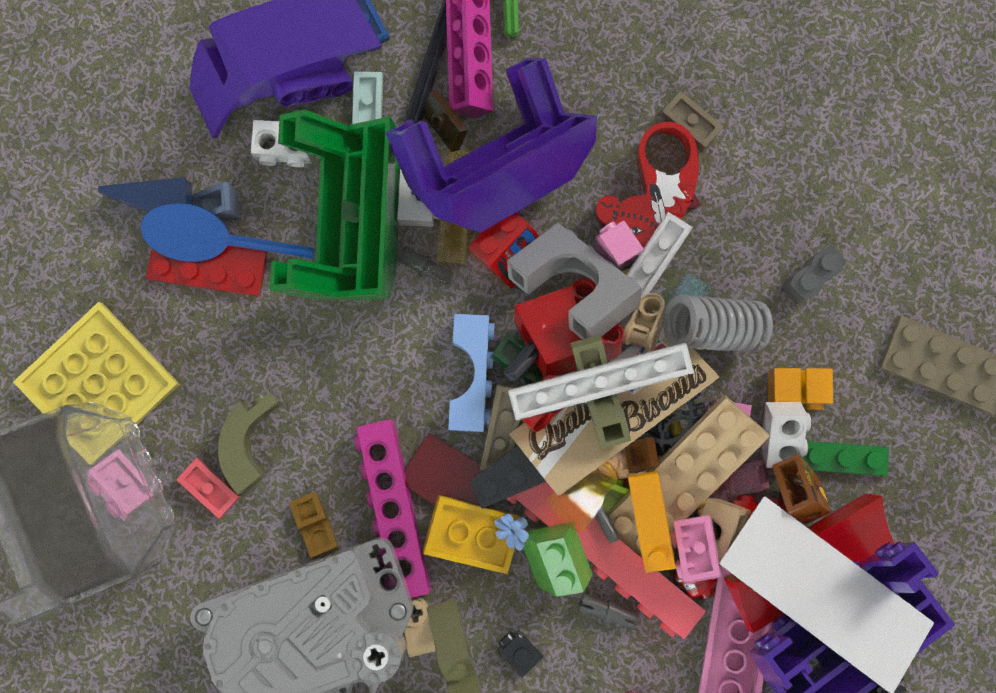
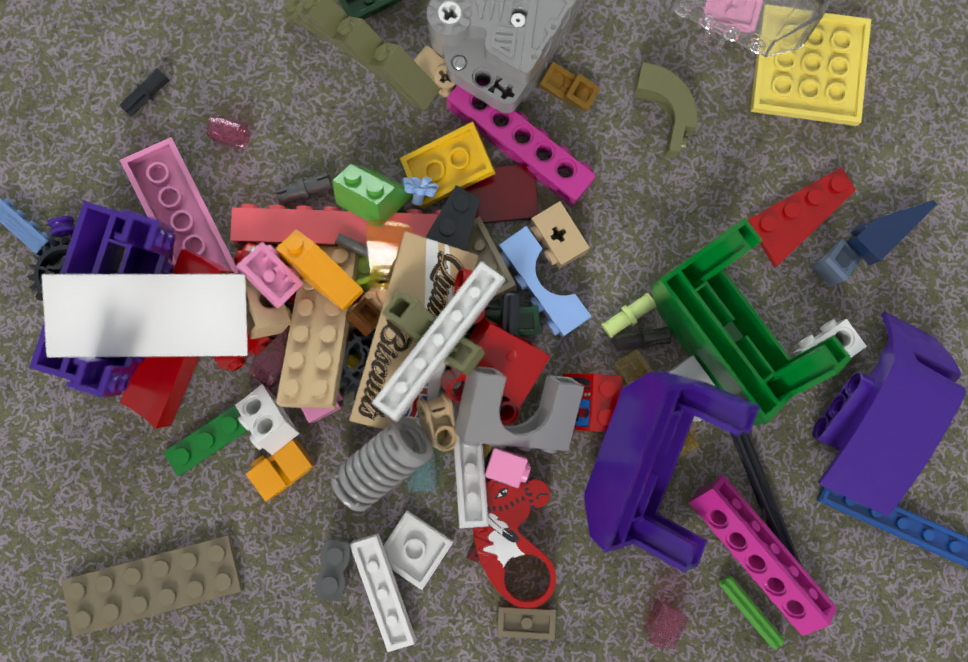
camera: 140 degrees right, 0 degrees up
(197, 234) = (829, 227): blue piece -> none
(208, 488) = (668, 53): coral plate -> none
(367, 96) = (793, 435): light aqua plate -> none
(420, 293) = (629, 315): none -> yellowish green pin
(420, 386) = (558, 220): none -> tan brick
(444, 121) = (720, 463): dark brown plate -> none
(519, 652) = (348, 111): black bracket -> none
(585, 36) = (665, 625): none -> clear pink brick
(738, 242) = (416, 549): none -> white tile
(788, 228) = (383, 592): none -> white plate
(802, 499) = (218, 381): dark orange torso -> none

